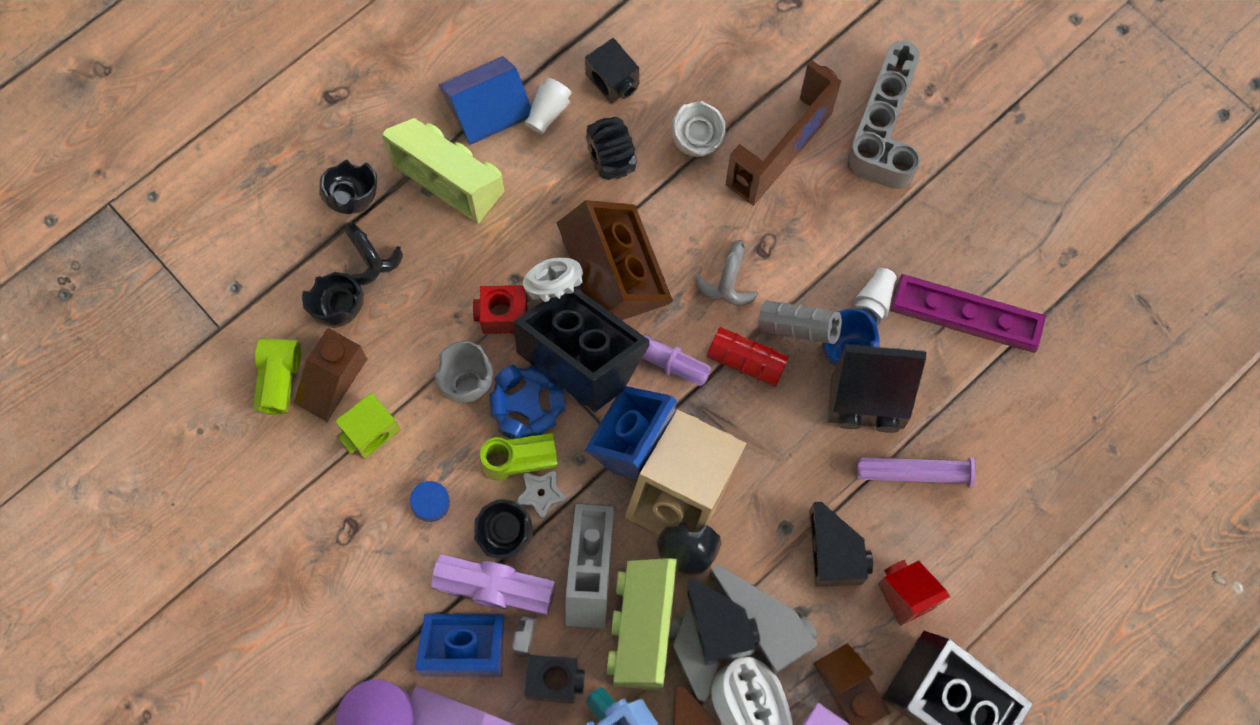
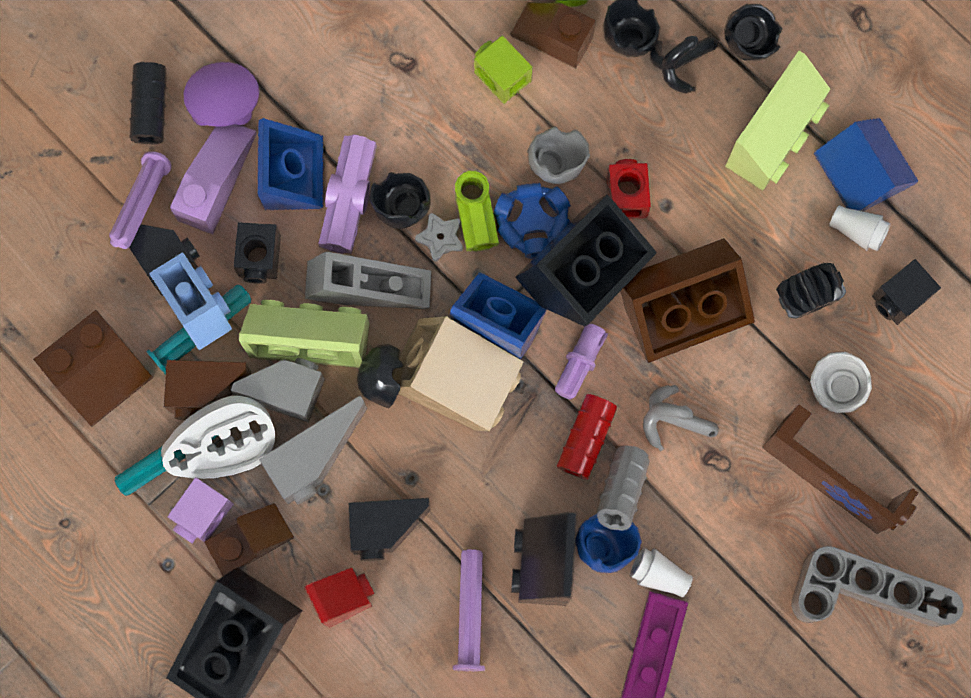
camera: 90 degrees right, 5 degrees up
(430, 501) = (431, 134): blue tile -> none
(524, 636) = (291, 225): light grey tile -> none
(539, 282) = (655, 220): white gear -> none
(720, 624) = (299, 399): black slope -> none

